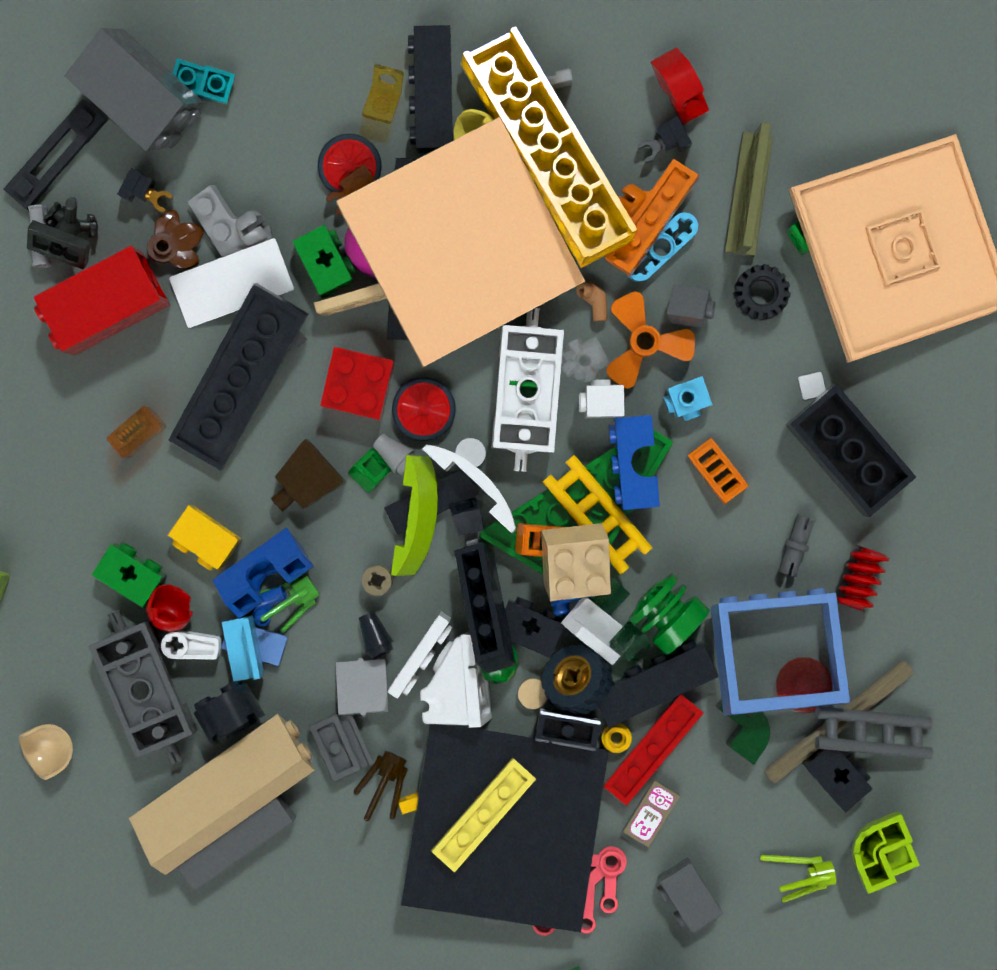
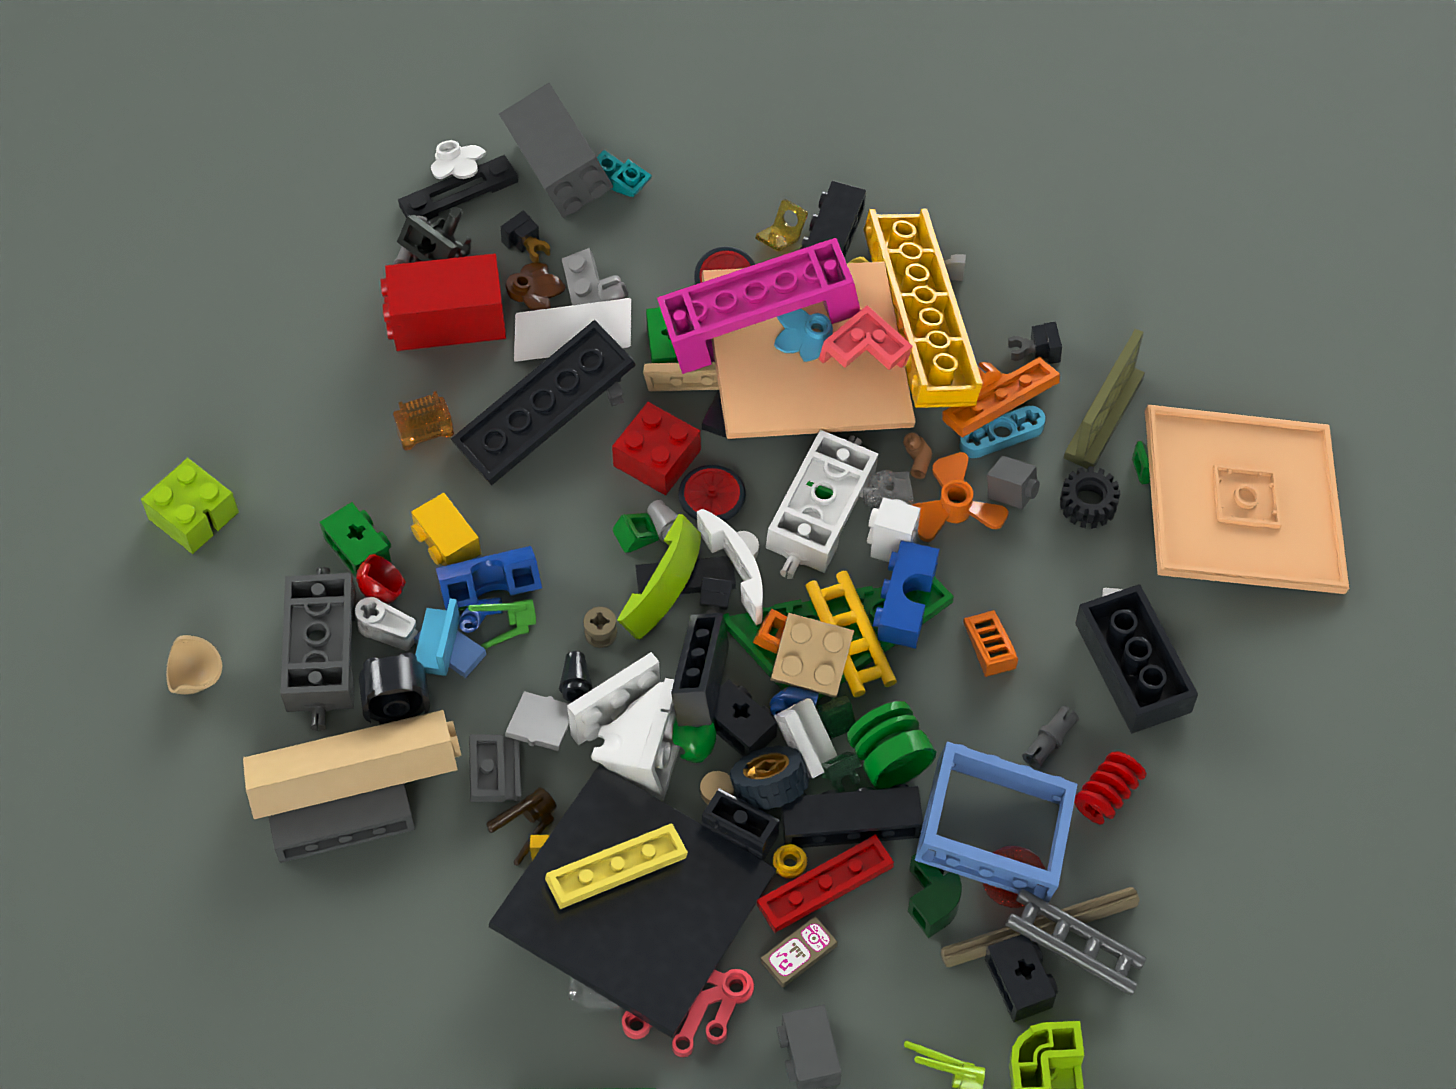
camera: 20 degrees right, 30 degrees down
(43, 126) = (456, 160): none -> white plate
(306, 478) = (570, 513): dark brown torso -> none
(402, 223) = (755, 296): none -> dark pink plate
(451, 238) = (799, 334): none -> medium azure plate
(517, 220) = (868, 333): none -> coral panel
(681, 85) = (1068, 299): red brick -> none
(687, 399) = (982, 563): medium azure brick -> none

